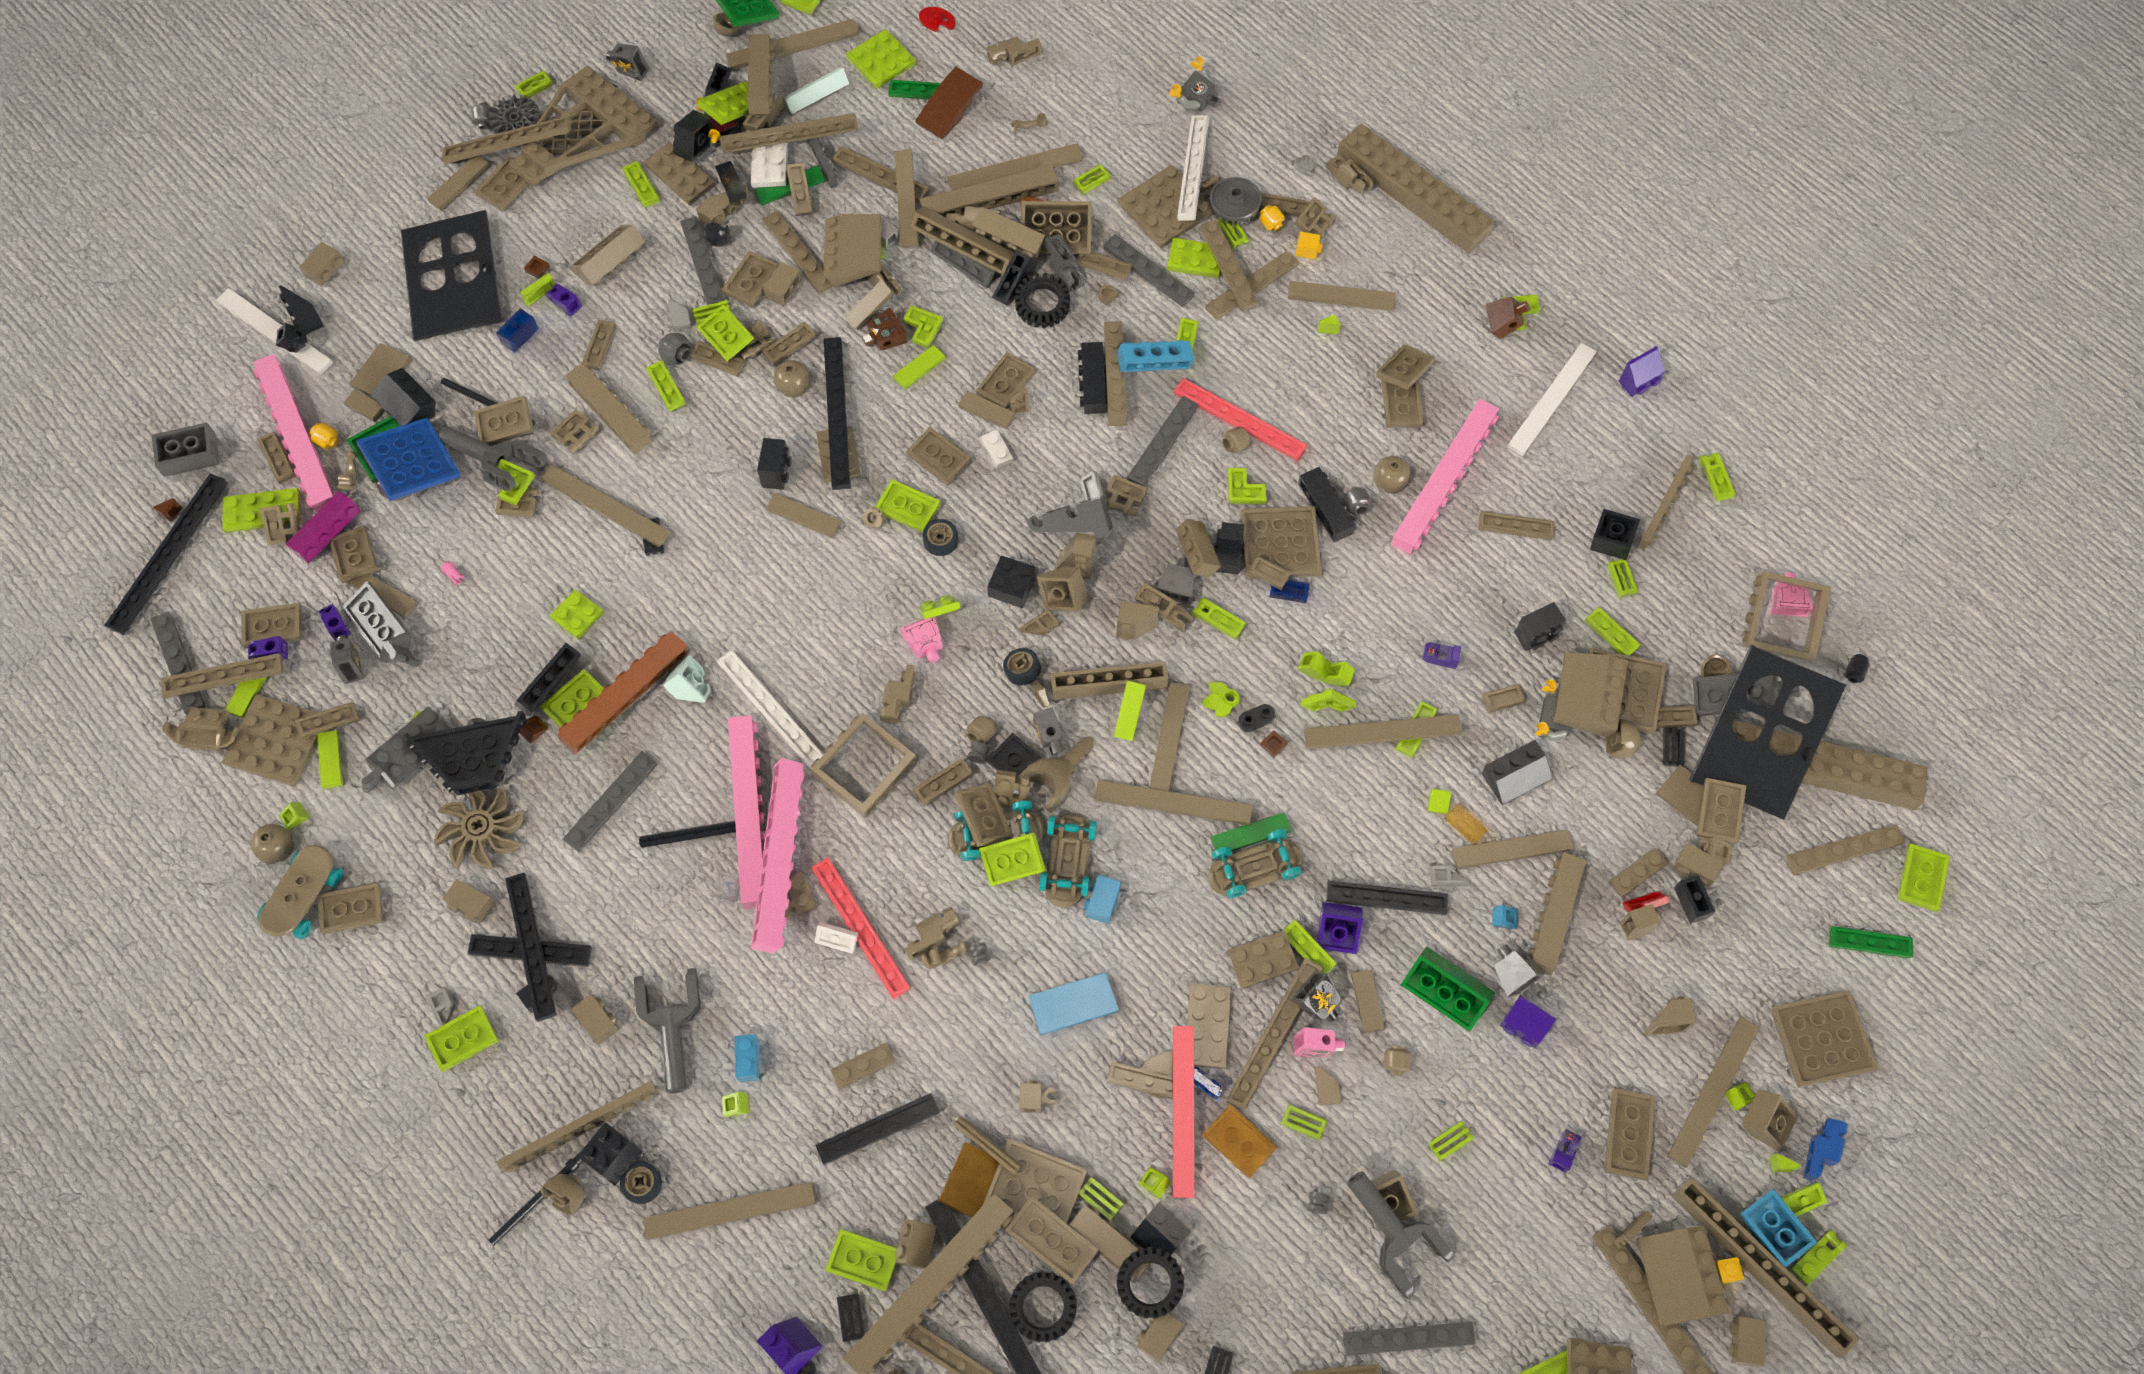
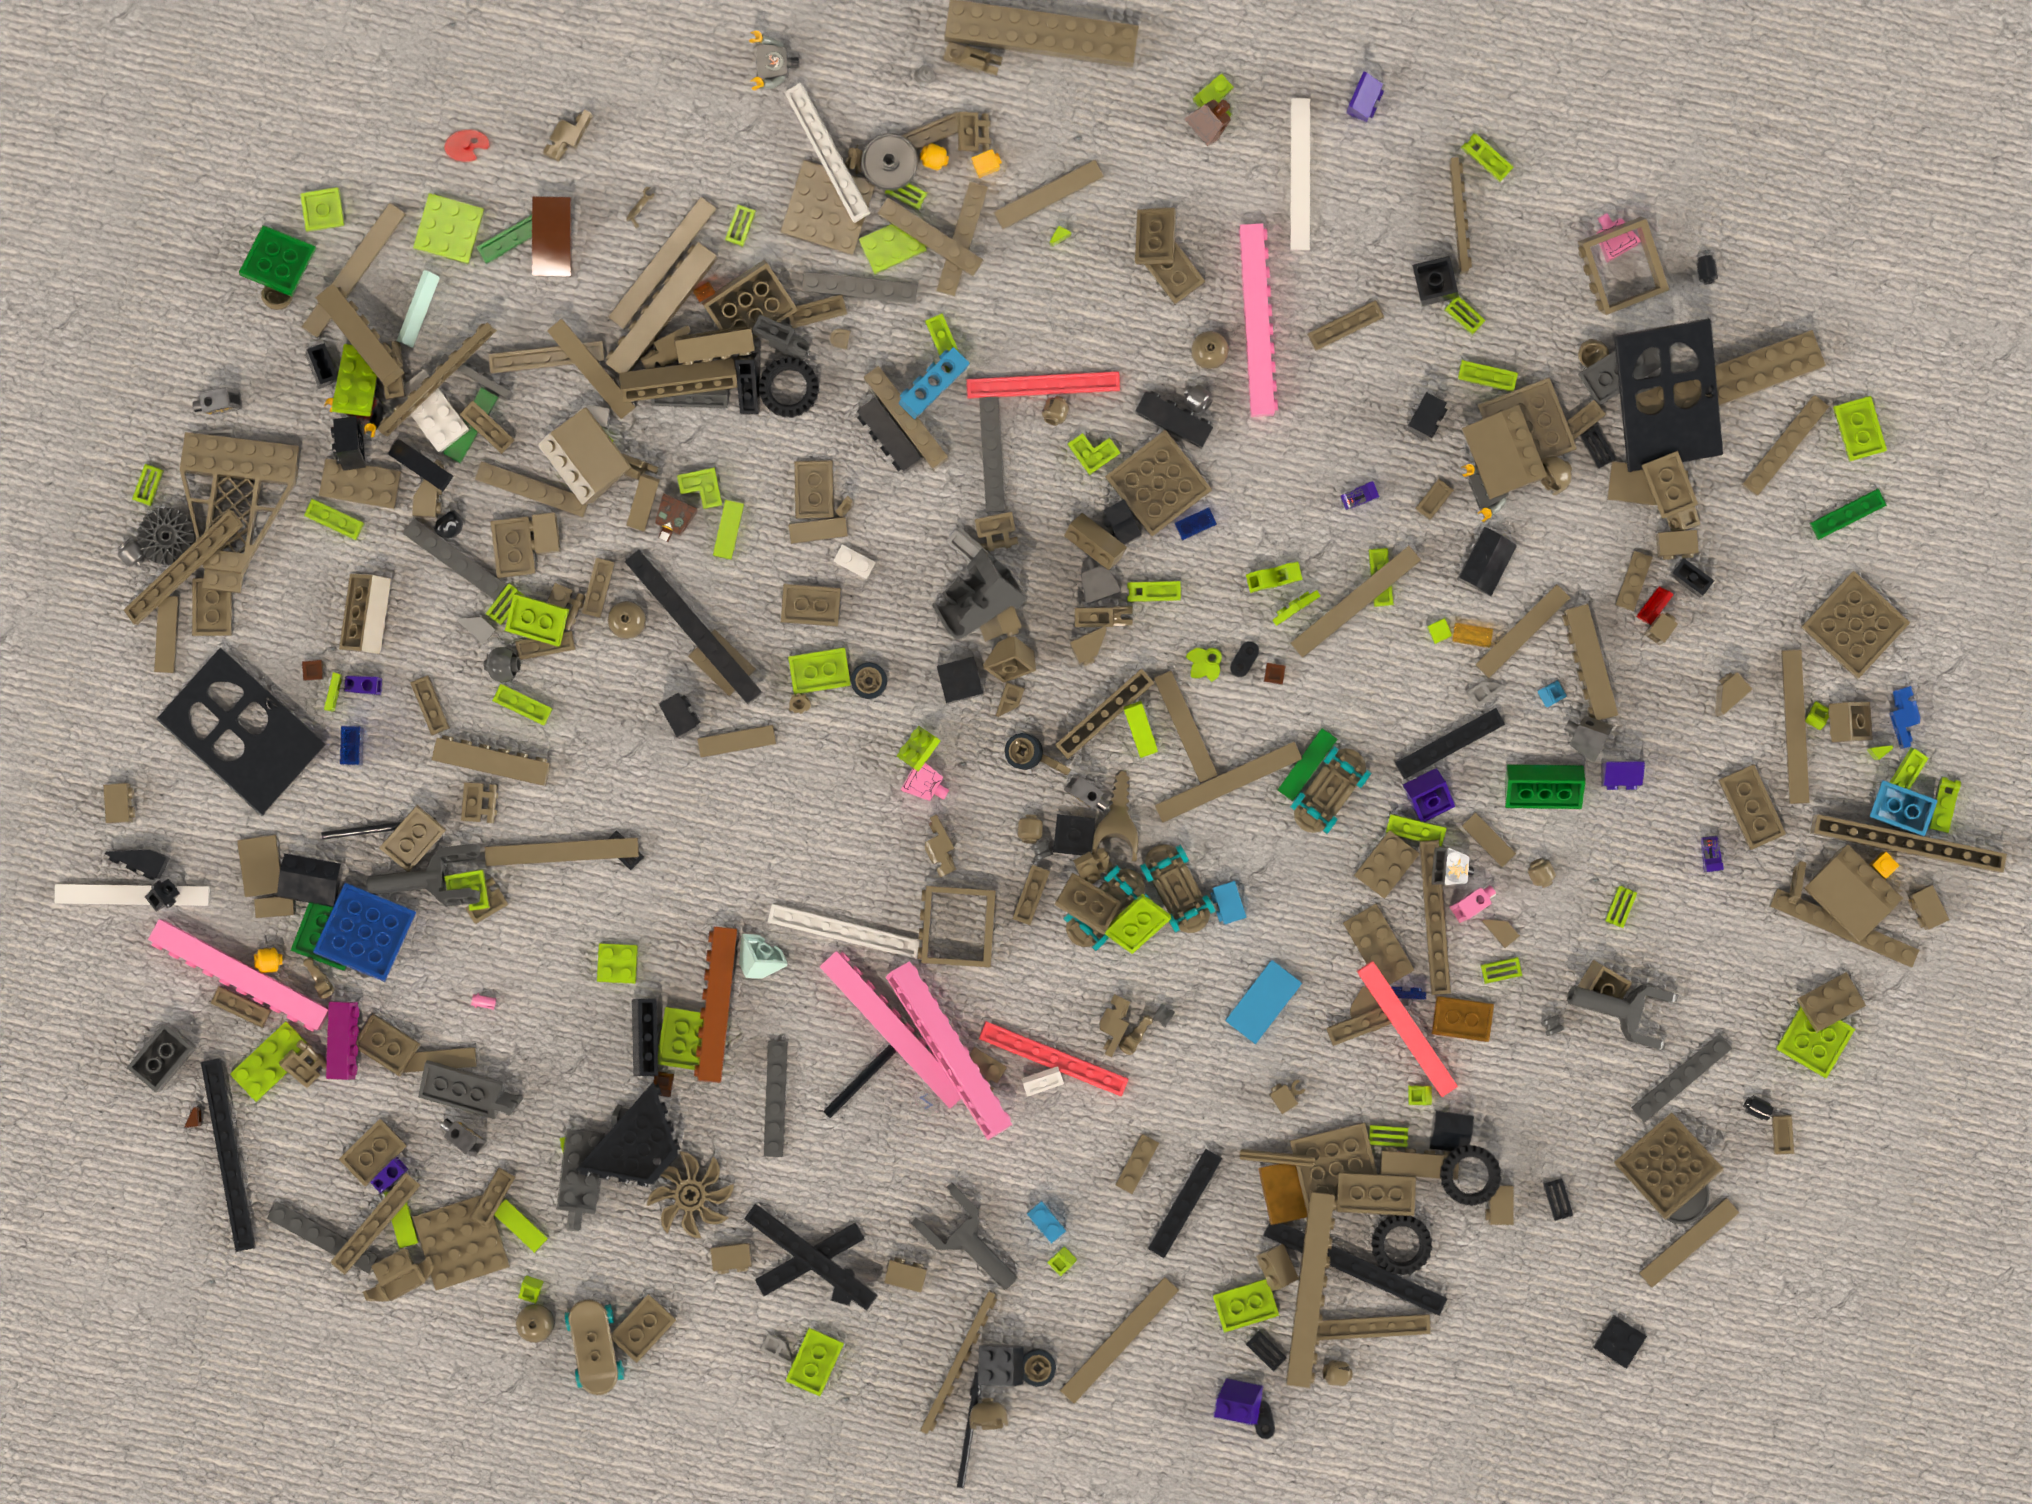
camera: 30 degrees left, 20 degrees up
(334, 622) = (422, 1113): dark purple leg -> none
(1269, 573) = (1170, 522): dark tan tile -> none

